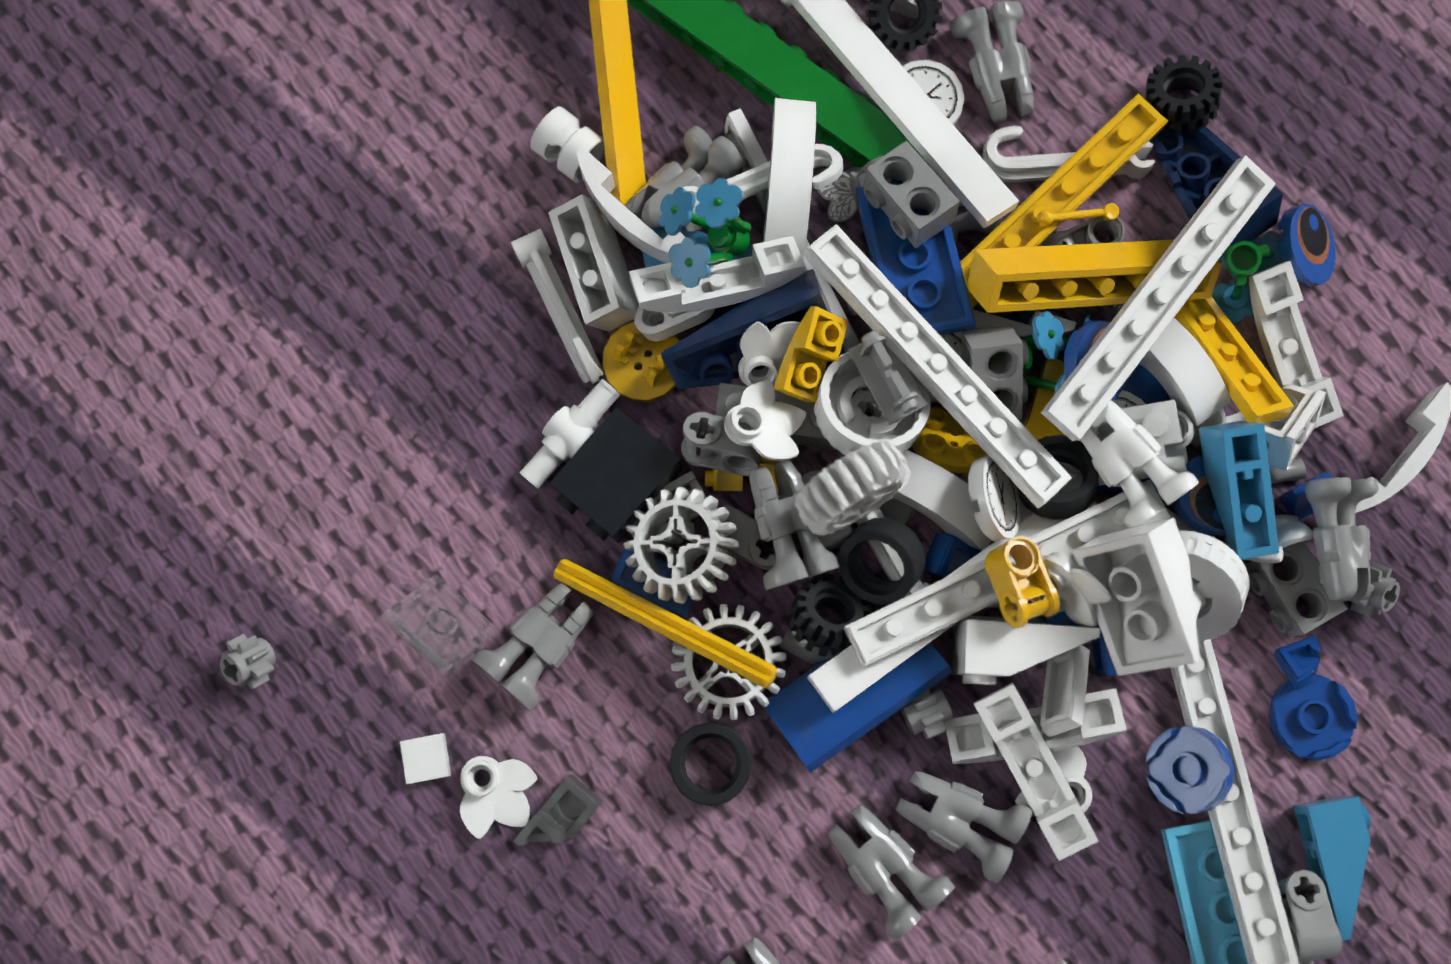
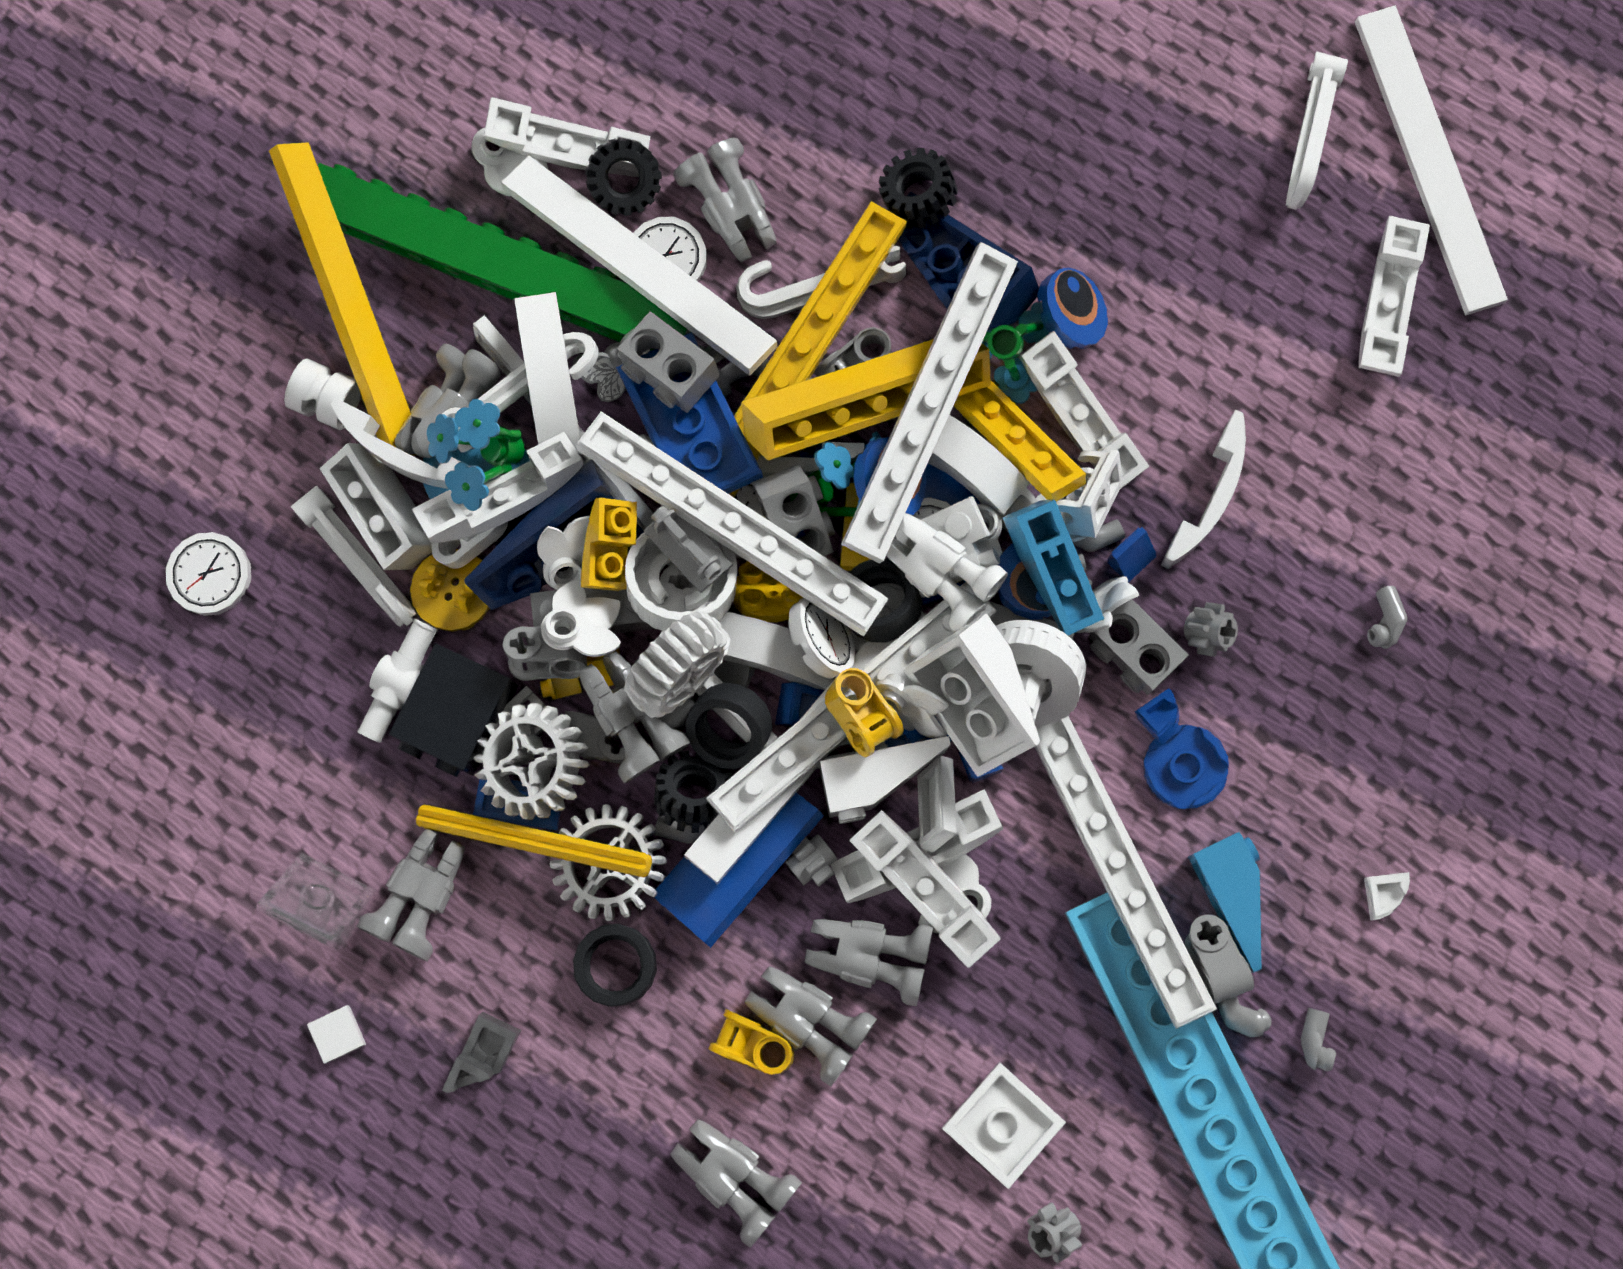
camera: 10 degrees left, 0 degrees up
(247, 661) = (137, 986): light grey gear -> none
(416, 286) = (208, 573): none -> white tile
(498, 800) = (418, 1055): white plate -> none
(823, 876) = (749, 1043): none -> yellow piece
(1107, 212) = (869, 327): yellow hinge -> none
(1189, 769) = (1074, 848): tile -> none
(1339, 543) = (1162, 592): light grey piece -> none

